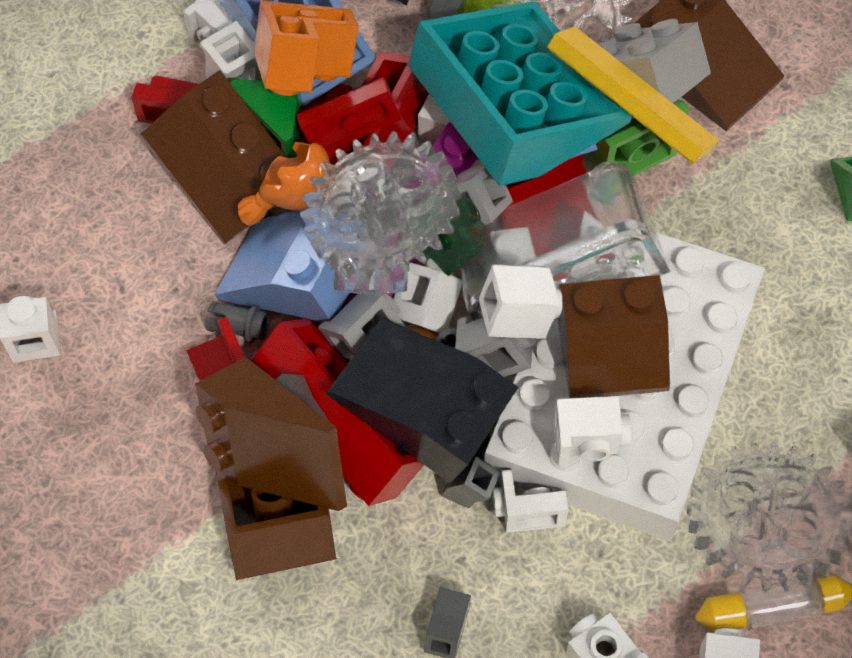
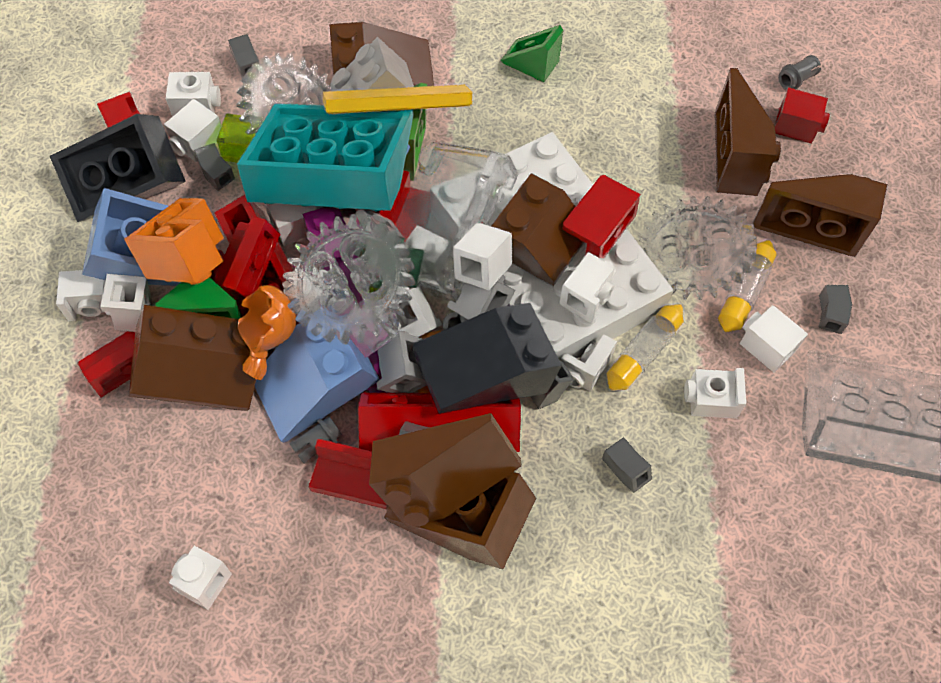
camera: 55 degrees left, 0 degrees up
(602, 548) = (645, 347): none -> piece
(682, 384) = (602, 215): none -> red panel

